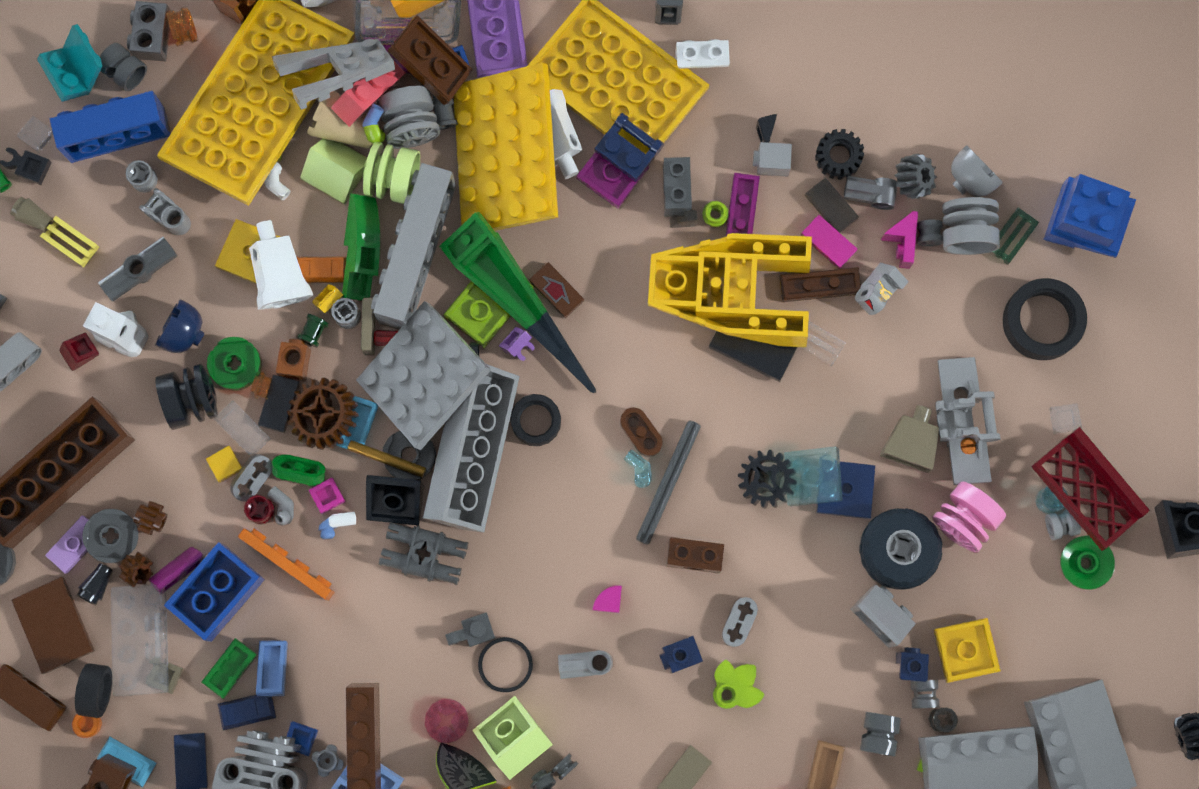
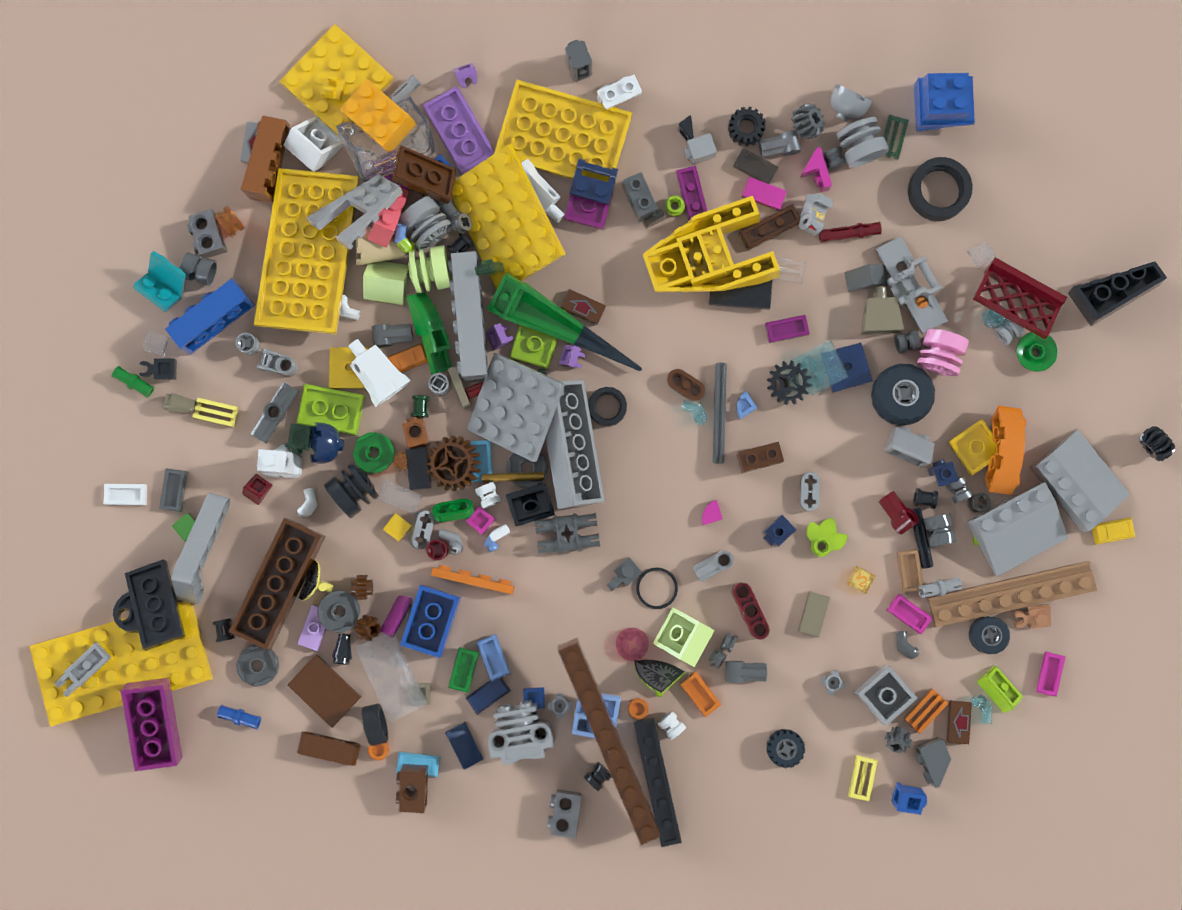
camera: 20 degrees left, 5 degrees up
(95, 488) = (312, 583): none -> shield
(131, 395) = (309, 505): none -> white arm
(153, 311) = (299, 438): none -> clear green bracket
(208, 290) = (332, 407): none -> lime tile
(307, 231) = (386, 335): none -> dark grey piece
(327, 298) = (421, 379): yellow tile -> none
(348, 474) = (488, 500): none -> white wheel
(439, 284) = (498, 337): none -> medium lavender tile
(441, 159) = (460, 245): none -> black bush
(457, 134) = (461, 223): none -> flat silver bush
(460, 197) = (489, 267): none -> clear green plate
(613, 751) = (757, 618): none -> dark red beam
(703, 486) = (745, 405): none -> medium blue tile
(759, 756) = (861, 580): none -> clear yellow tile
(791, 413) = (787, 329): none -> magenta tile
(839, 698) = (901, 517): none -> dark red piece
(854, 735) = (922, 541): none -> black axle
(878, 688) = (925, 498): none -> black bush
(909, 326) = (859, 230): none -> dark red pin
(913, 390) = (866, 277): none -> dark grey slope
(932, 487) = (907, 341): none -> dark grey wheel
(1012, 651) = (1006, 464): none -> orange brick

